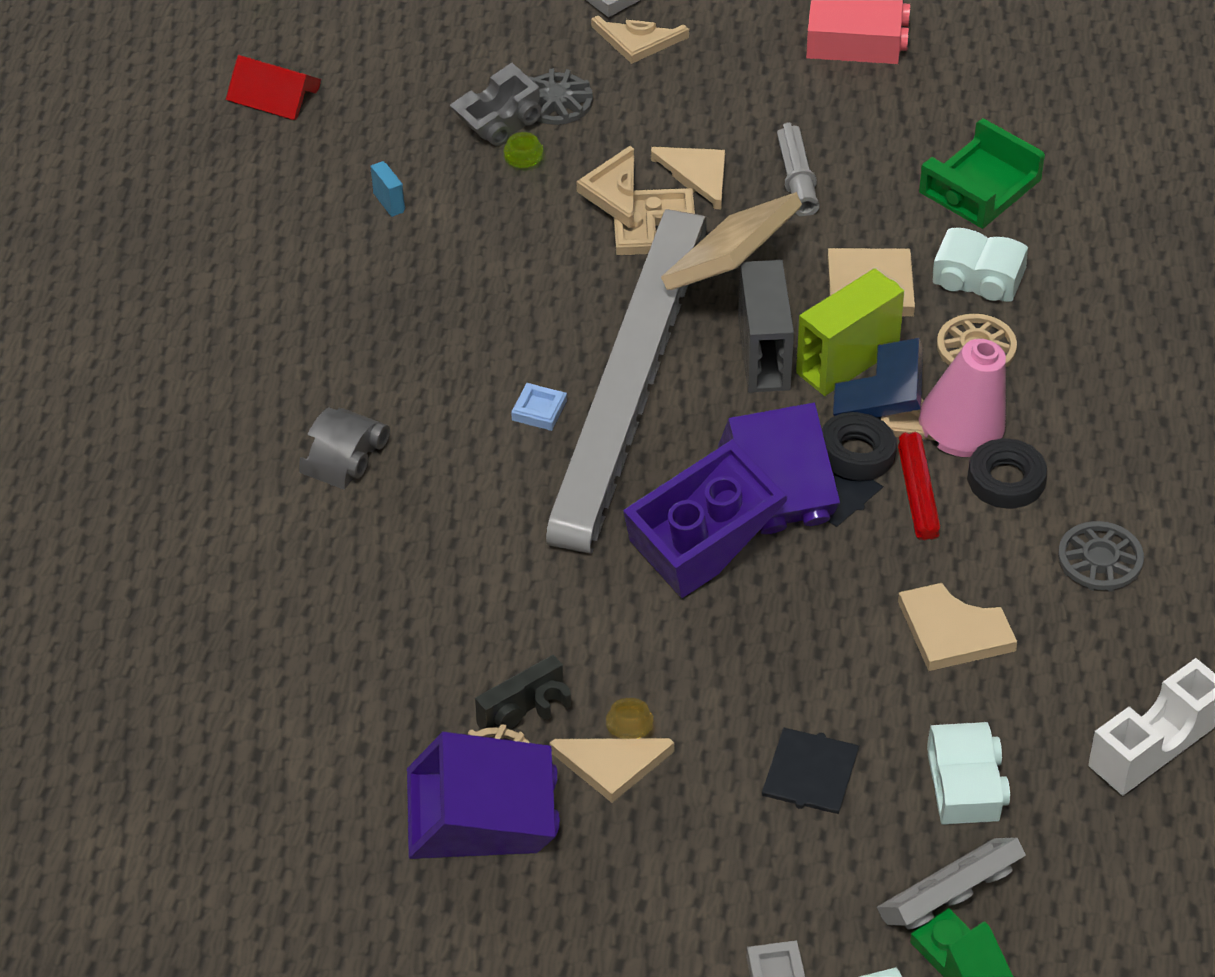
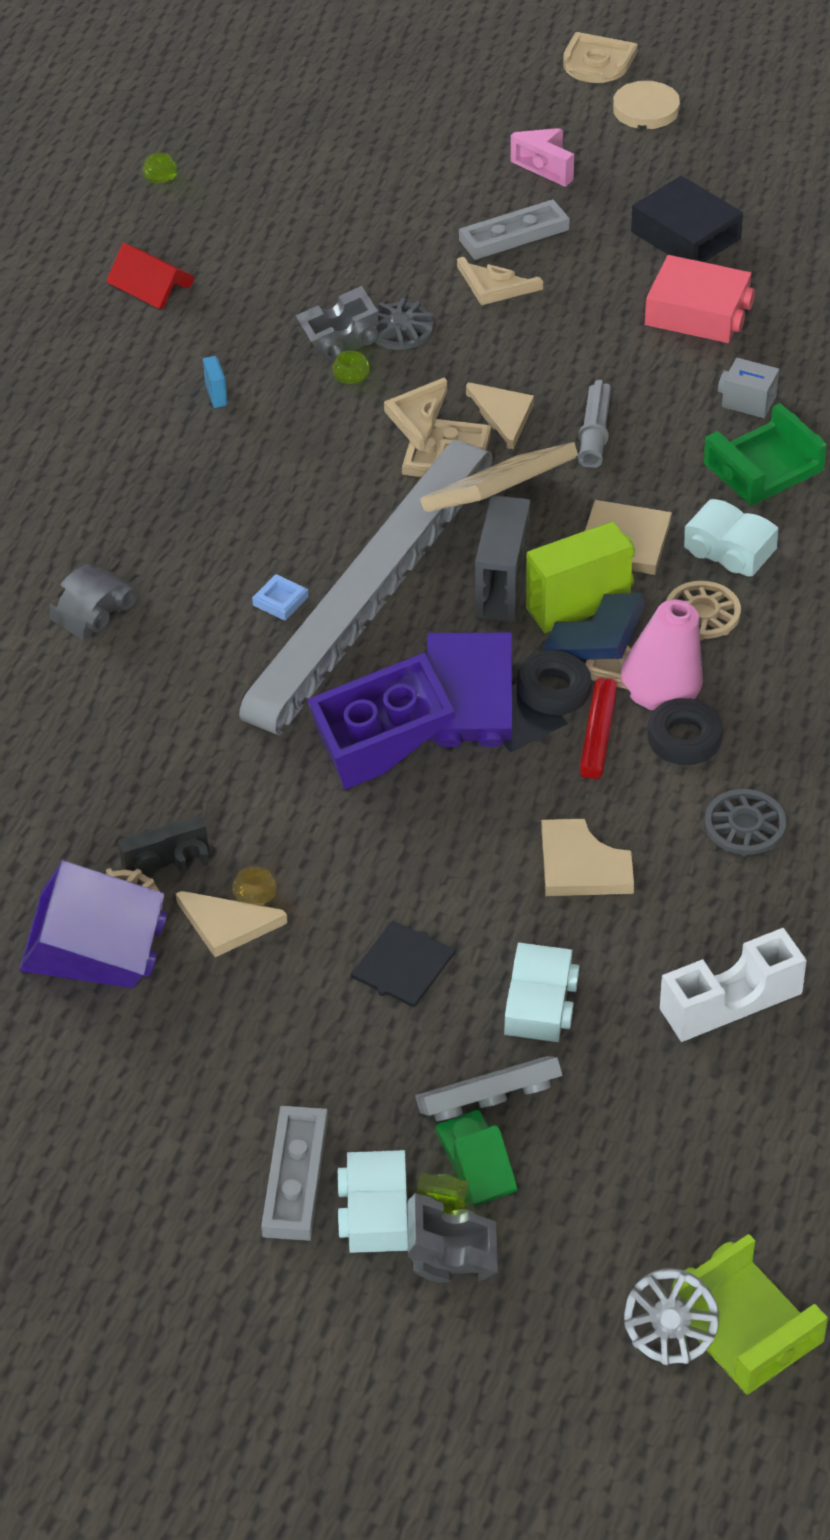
camera: 15 degrees right, 0 degrees up
(940, 106) = (749, 387): none -> light grey brick

